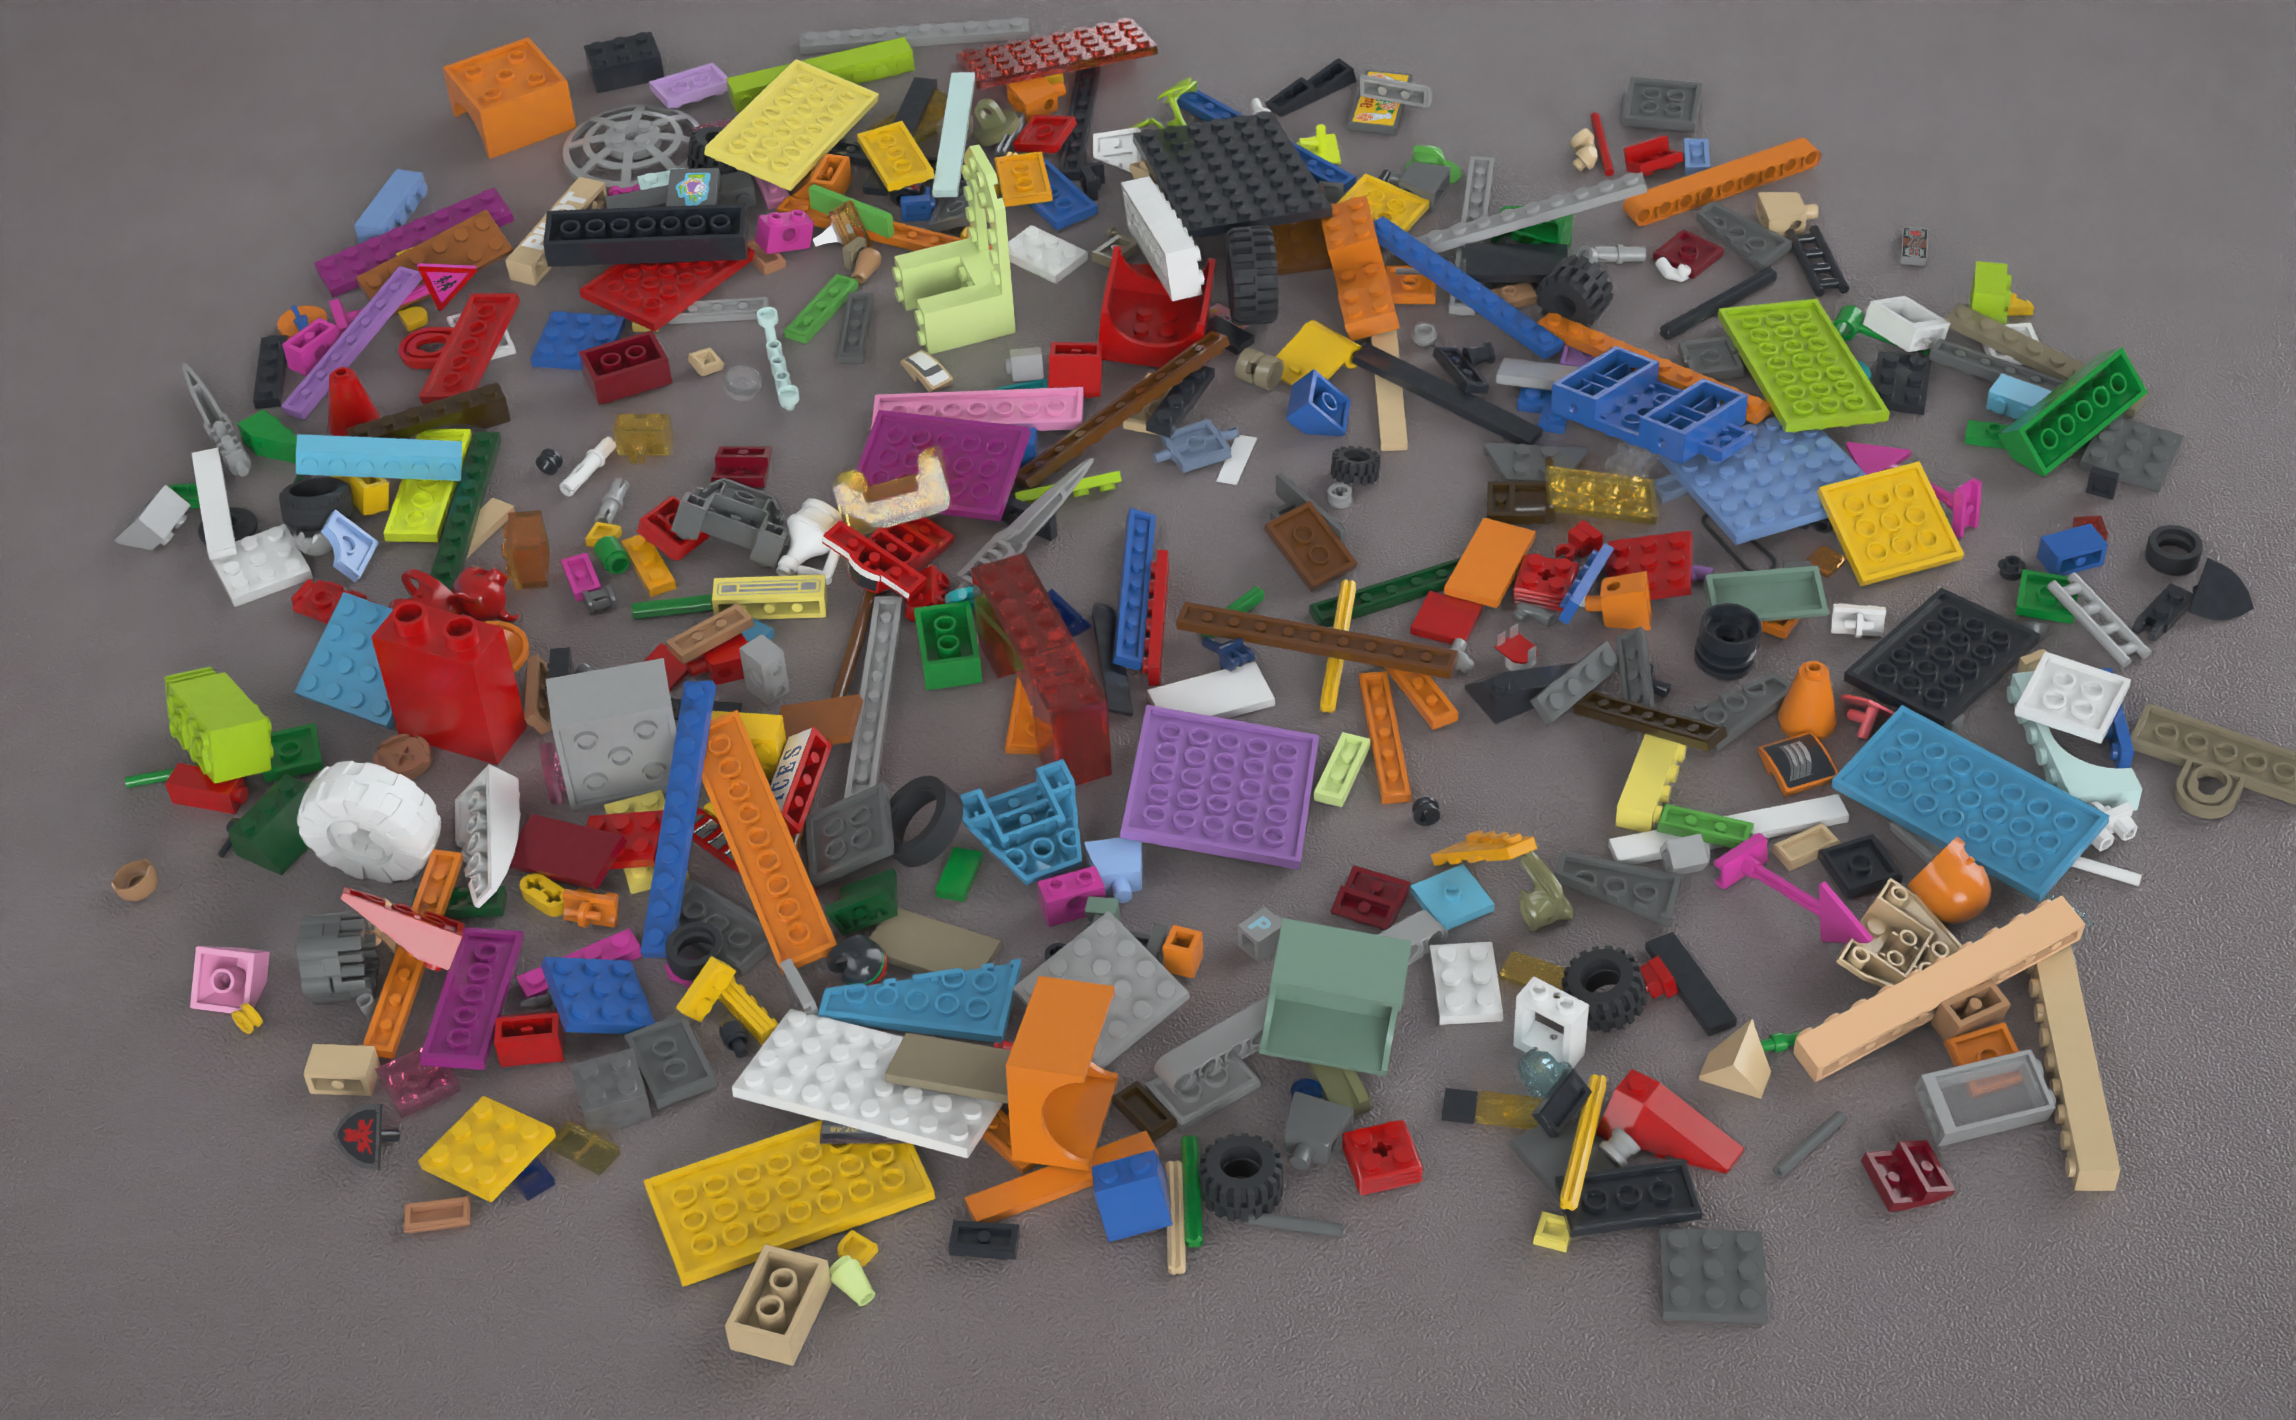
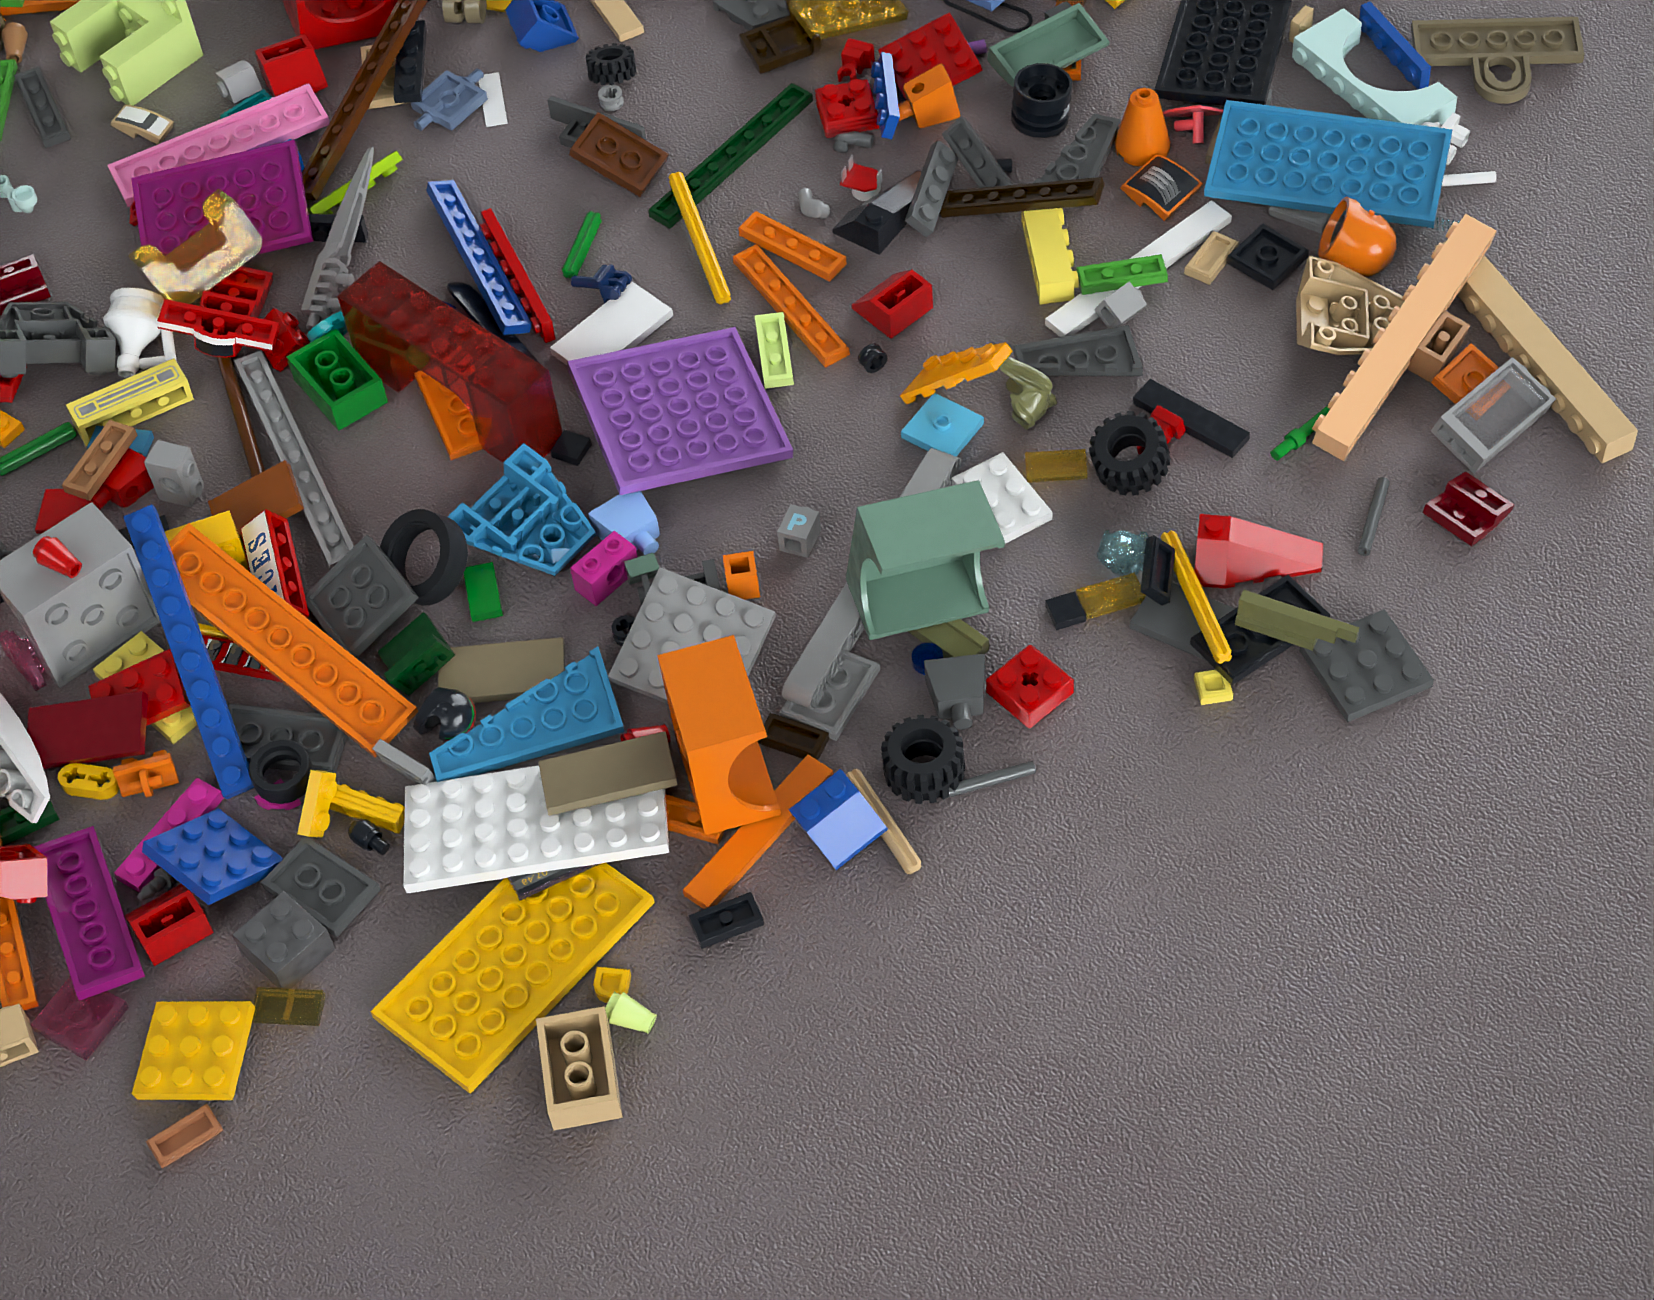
camera: 25 degrees left, 10 degrees up
(361, 1135) = (62, 1095): shield -> none
(534, 1180) = (259, 1059): clear blue tile -> none
(604, 689) = (55, 556): none -> red cone
(1111, 783) = (571, 447): none -> black tile
(1191, 1191) = (862, 761): green axle -> none
(1318, 640) = (681, 239): reddish brown plate -> none
(1371, 898) = (872, 457): dark red slope -> none
(1446, 618) = (777, 175): red tile -> none
(1478, 772) = (896, 302): none -> red slope
(1490, 563) = (788, 108): orange tile -> none
(1566, 1011) = (1093, 521): white window -> none
(1619, 1147) = (1226, 588): light grey wheel -> none
(1651, 1200) = (1290, 622): none -> olive piece
(1738, 1063) = (1274, 471): tan slope -> none
(1836, 920) = (1284, 309): dark pink piece -> none
(1858, 620) = (1134, 39): white hips -> none
(2072, 697) = (1358, 38): white plate -> none

